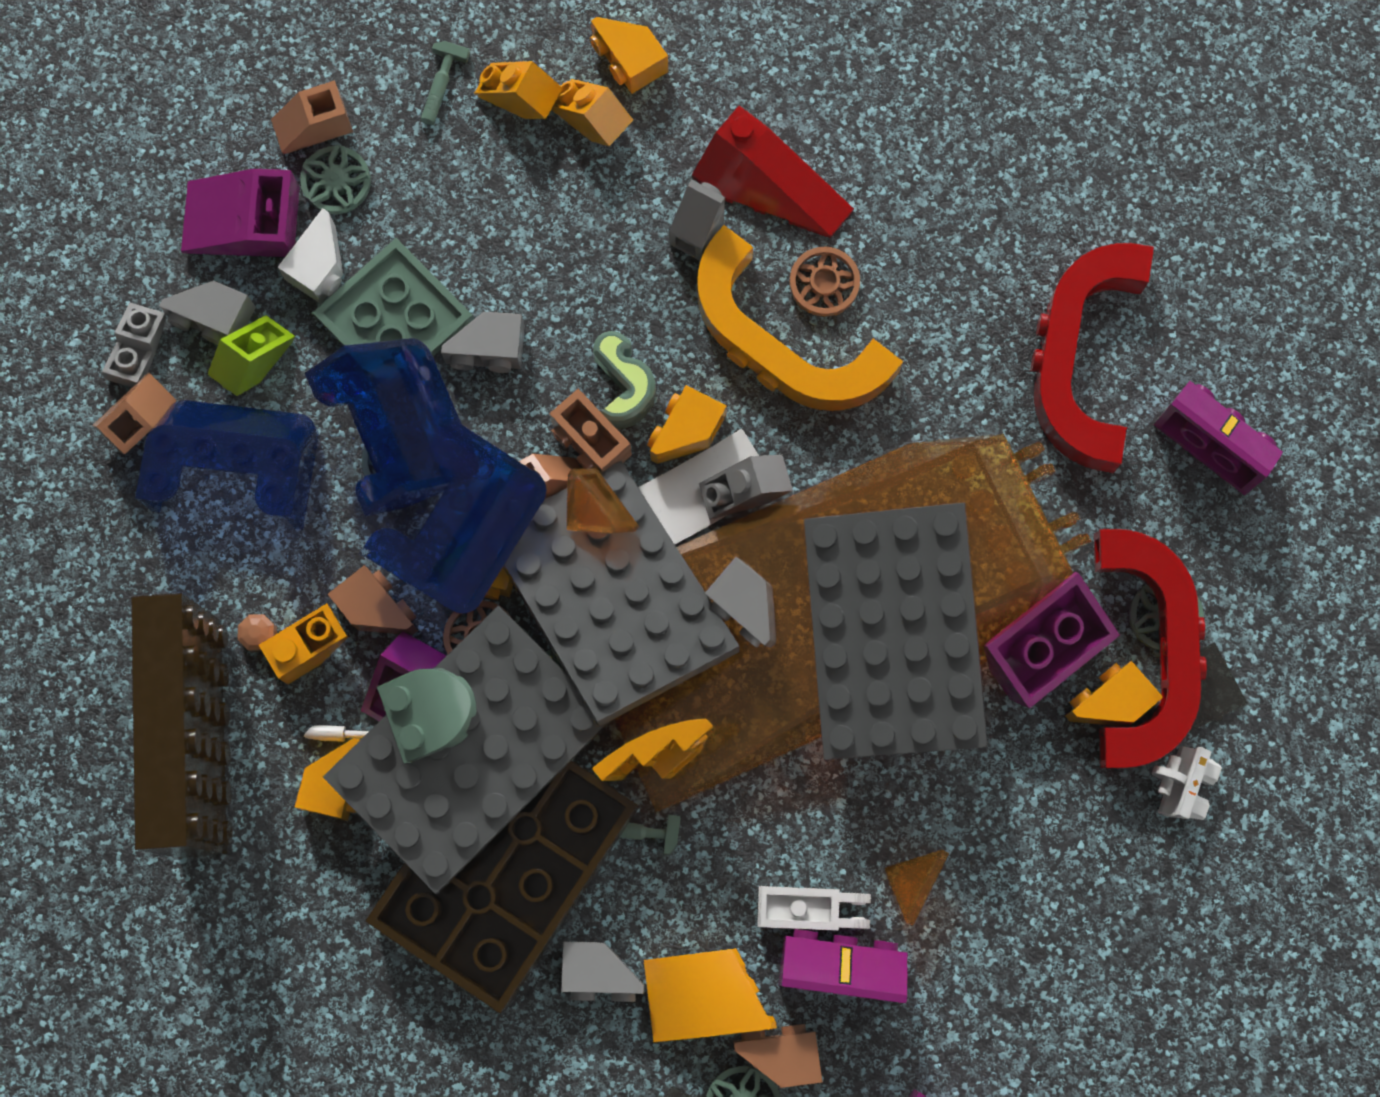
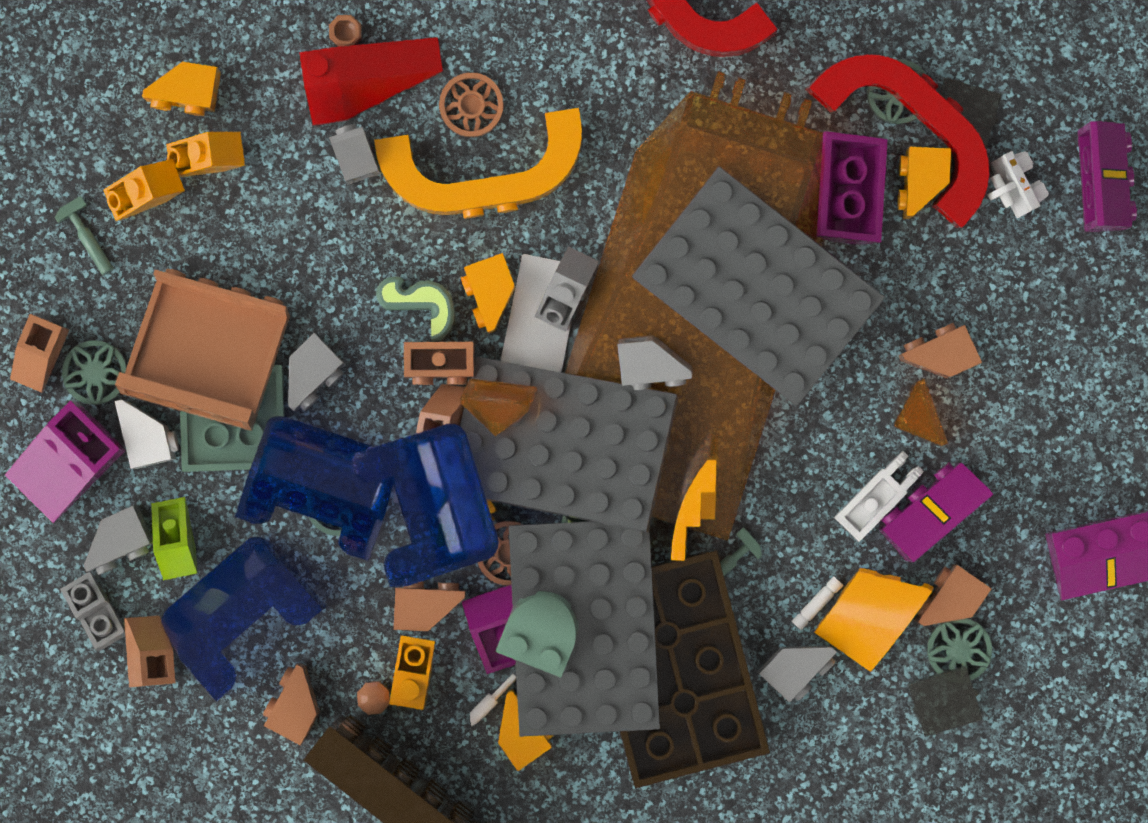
camera: 45 degrees left, 10 degrees up
(194, 570) = (296, 707): none -> nougat slope
(430, 244) = (205, 349): none -> nougat panel
(671, 940) = (817, 603): none -> white wheel
(792, 131) = (345, 31): none -> nougat tile
(986, 854) = (945, 355): none -> nougat slope
(1267, 854) = (1106, 176): none -> magenta slope

